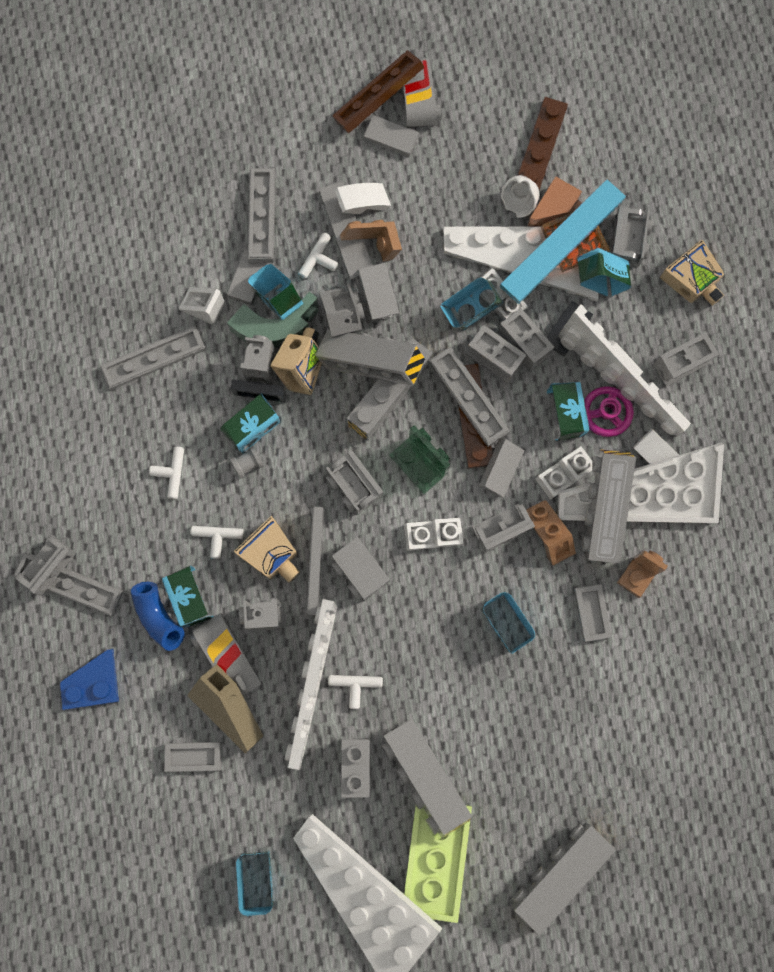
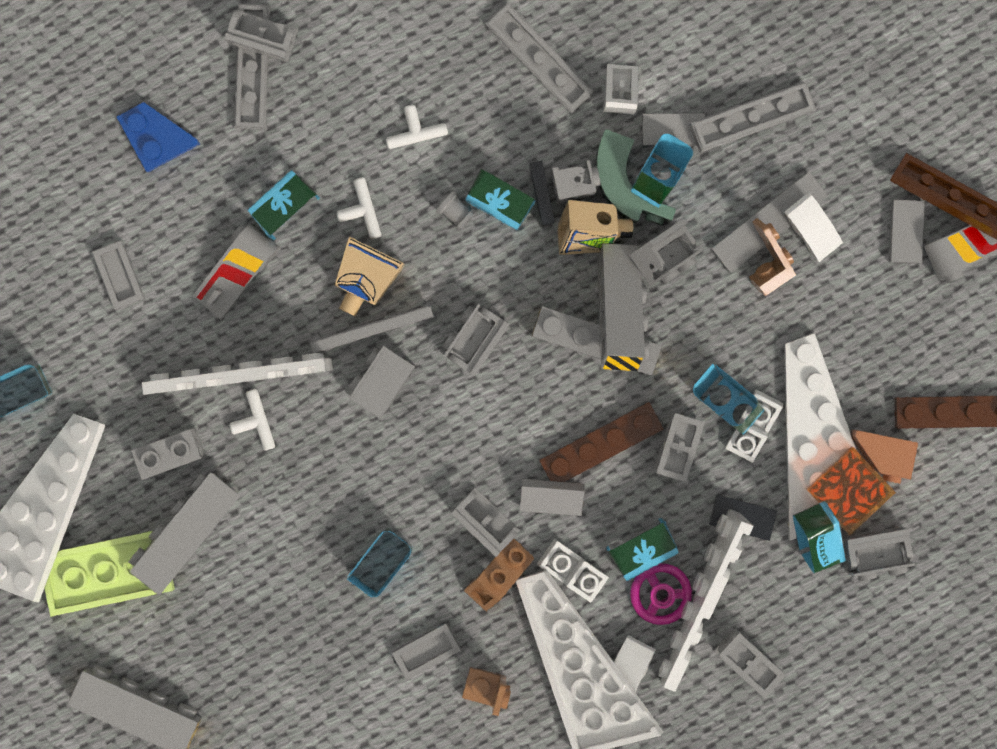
camera: 70 degrees right, 10 degrees up
(154, 616) = (249, 177): blue cylinder -> none
(224, 704) = (181, 293): dark tan slope -> none
(261, 615) = (289, 295): light grey hinge -> none
(317, 257) = (726, 199): white piece -> none
(376, 292) = (703, 285): light grey hinge -> none
(421, 460) = (525, 404): clear green bracket -> none
(433, 534) = (450, 447): white slope -> none
(469, 396) = (619, 433): light grey tile -> none
(520, 195) = (881, 410): white hair -> none
(526, 337) = (708, 474): light grey hinge -> none
(562, 241) = (838, 478): medium azure tile -> none
(609, 506) = (546, 630): light grey brick -> none
(695, 275) = (857, 643): tan torso -> none

